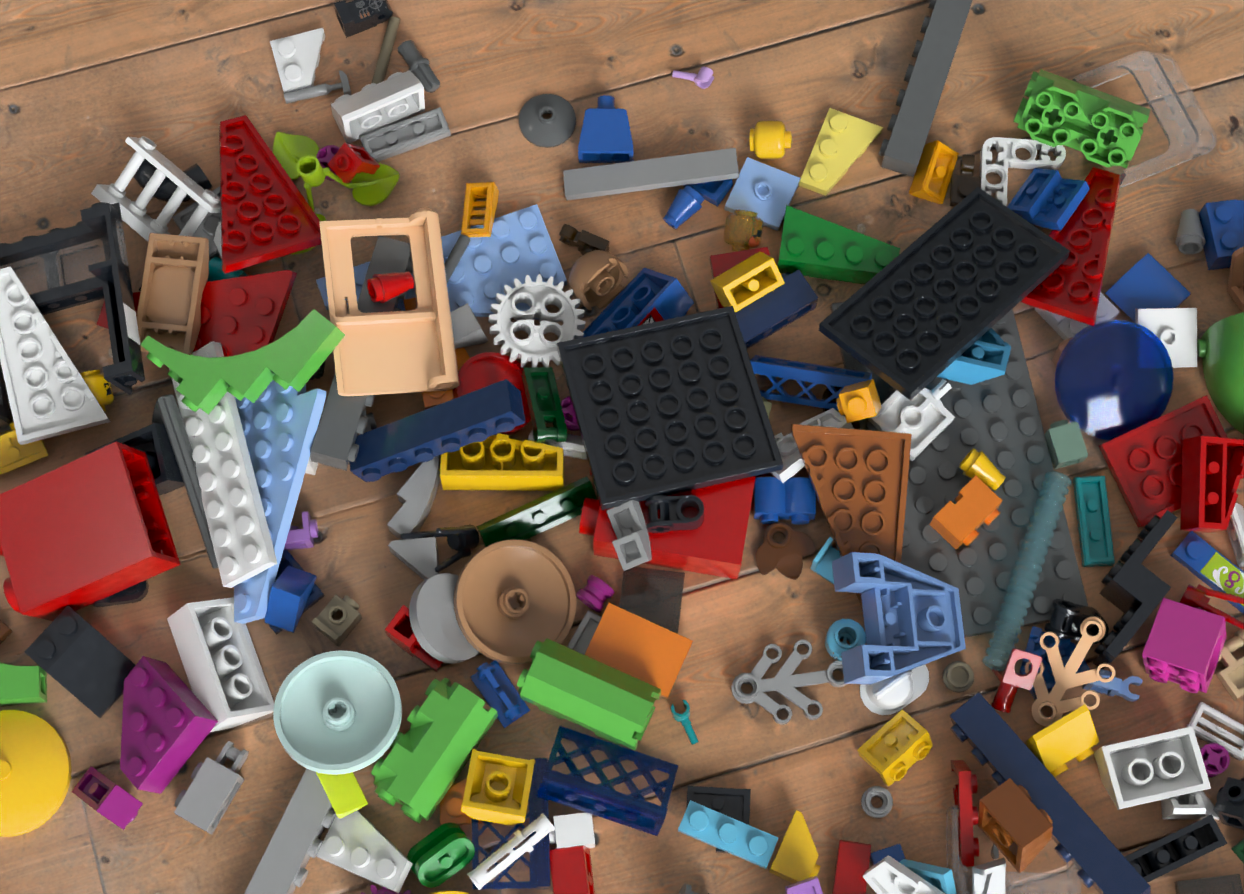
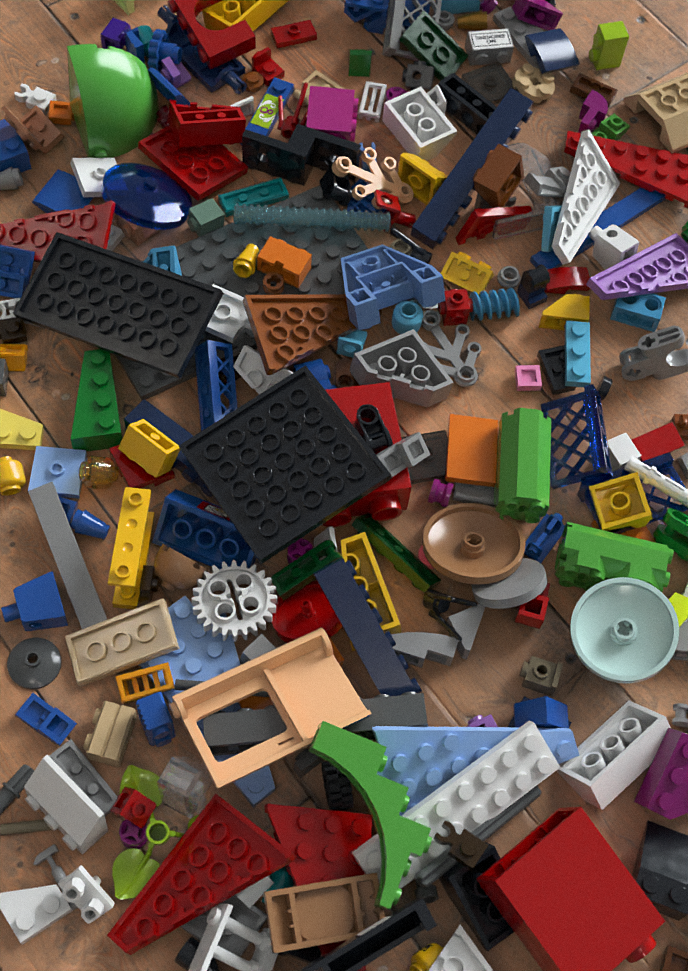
camera: 115 degrees left, 10 degrees down
(175, 447) = (464, 847): none -> dark brown plate
(288, 105) = (86, 894): none -> white hips
(348, 199) = (184, 785): none -> clear wedge
(389, 285) = (255, 714): red cone -> none
(432, 196) = (156, 719): none -> blue brick
(439, 167) = (110, 734): none -> tan brick
(481, 115) = (45, 719): none -> blue slope
(532, 201) = (121, 642): none -> tan tile
(632, 231) = (131, 547): none -> yellow fence
(672, 851) = (604, 387): none -> black tile
(685, 721) = (502, 408): teal hand -> none
(718, 763) = (528, 378): none -> bright pink plate
(769, 604) = (408, 367): none -> light grey brick
(834, 761) = (495, 303): none -> dark azure piece
(838, 716) = (456, 307): none -> red brick
(845, 822) = (533, 286): none -> leg
(859, 401) = (228, 339): light orange brick -> none
(932, 496) = (273, 277): none -> dark orange bush
(938, 694) = (418, 252): none -> black plant

